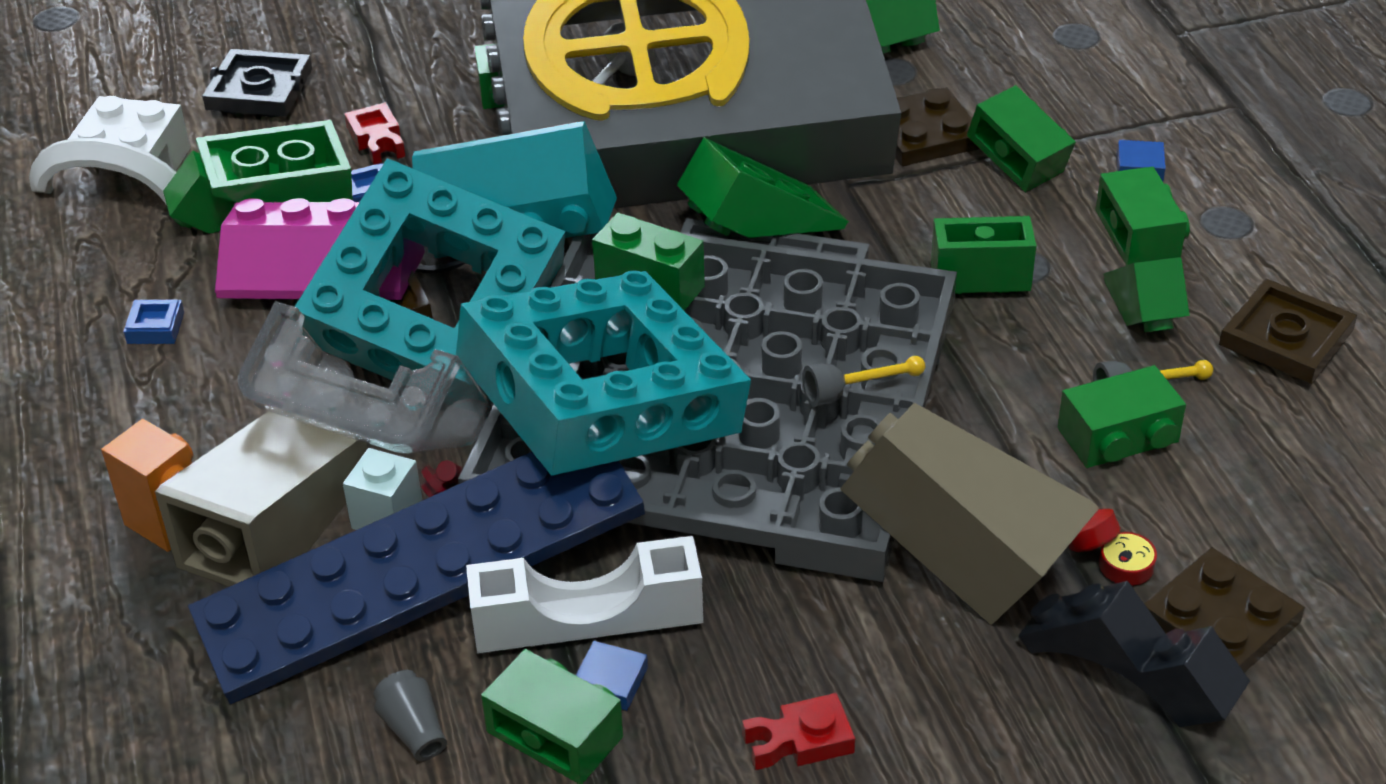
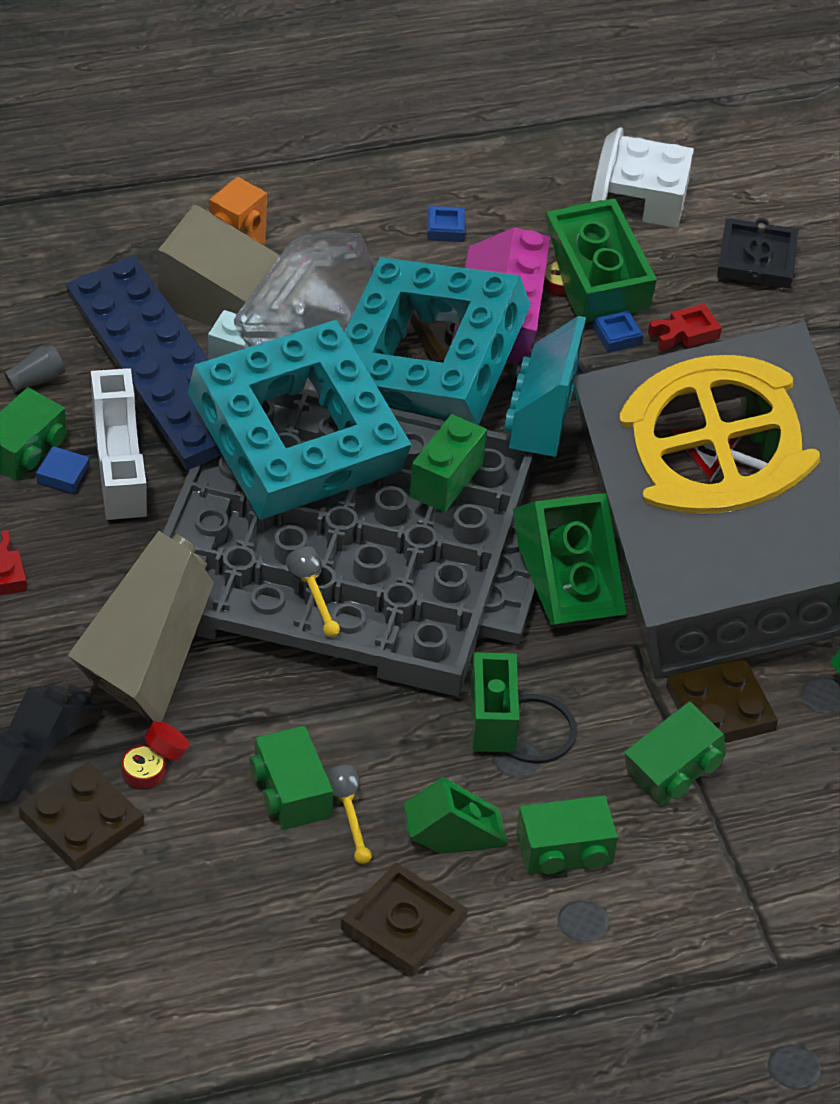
camera: 85 degrees right, 5 degrees up
(1140, 155) = (670, 861): blue tile -> none

